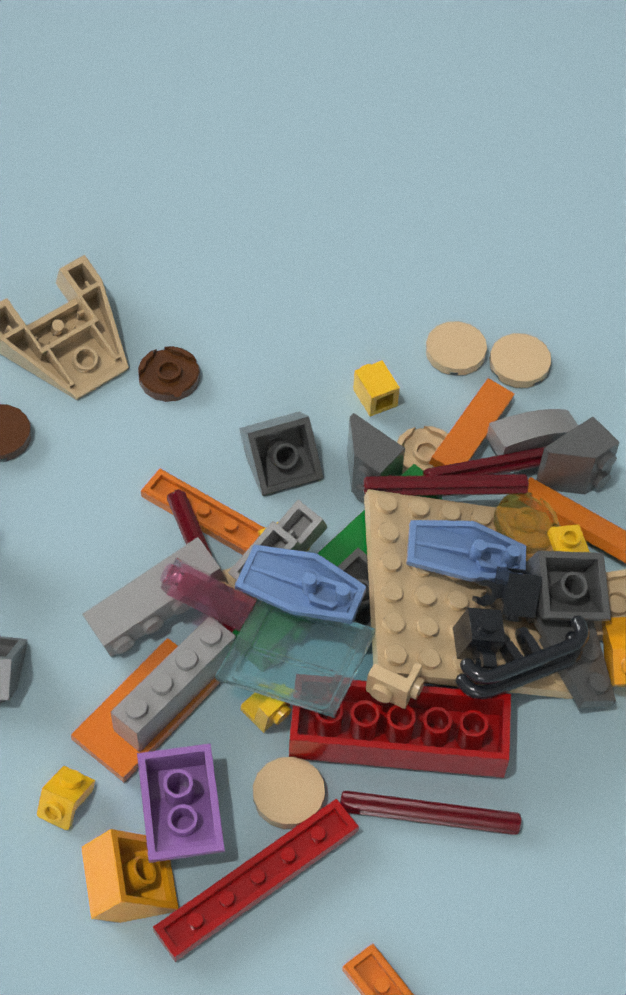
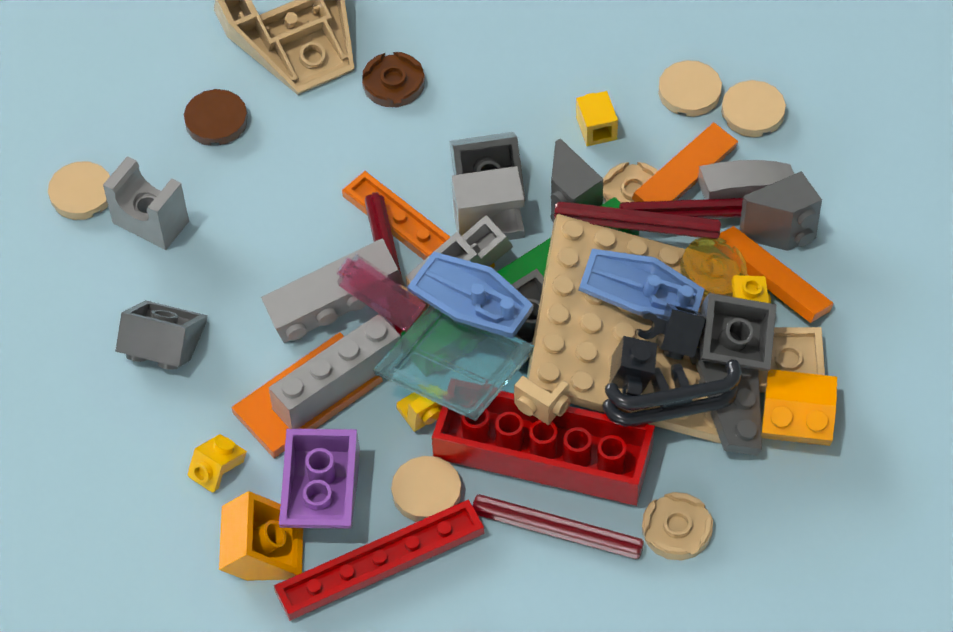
camera: 15 degrees right, 0 degrees up
(289, 479) = (492, 194): none -> light grey piece
(548, 793) = (677, 526): none -> tan tile

